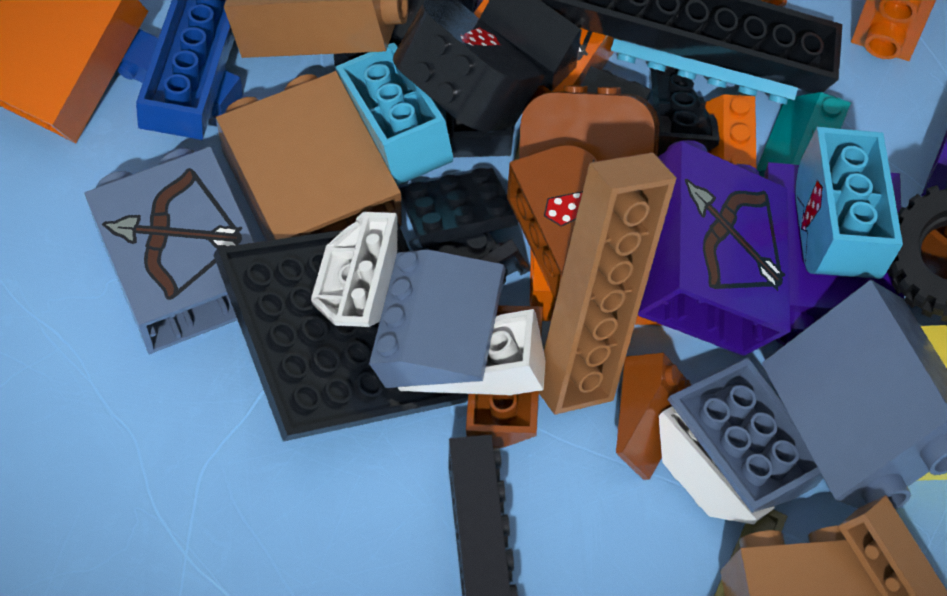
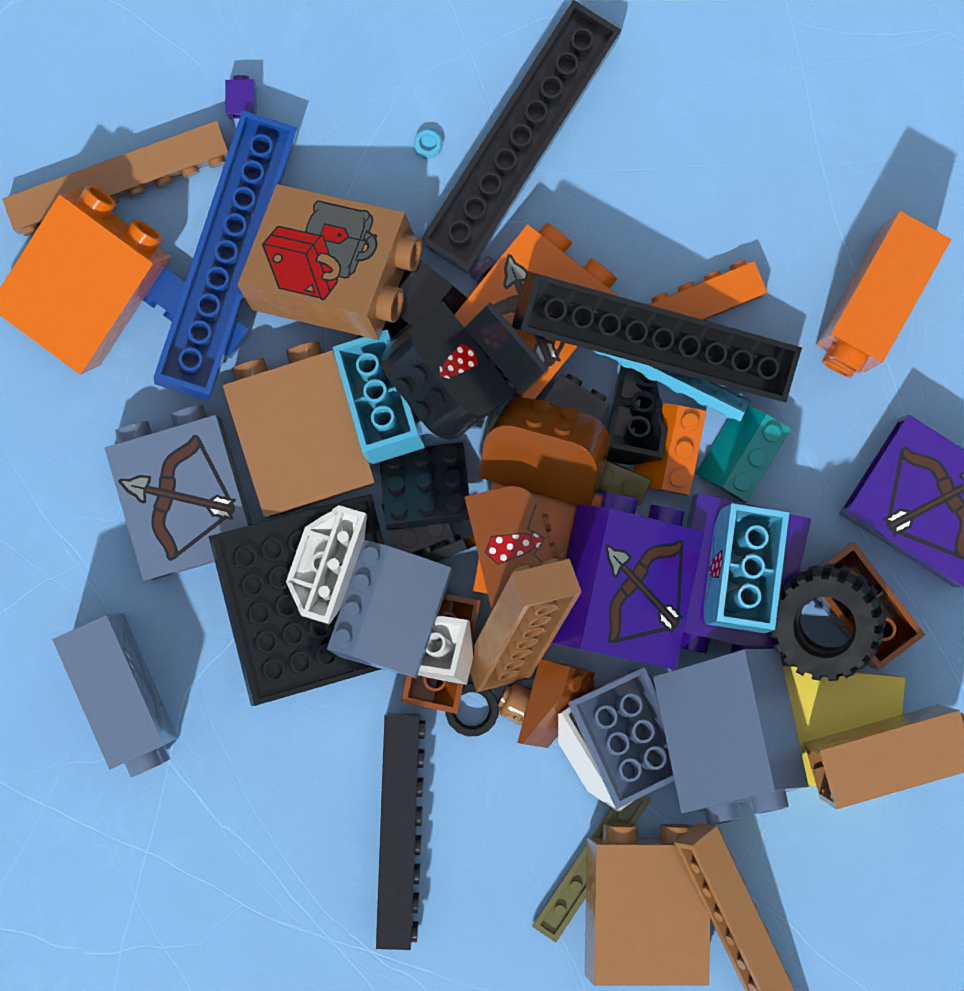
camera: 10 degrees right, 25 degrees up
(115, 450) = (117, 693): none -> sand blue brick
(558, 467) = (486, 725): none -> black tyre
(601, 426) = (514, 702): none -> medium nougat head

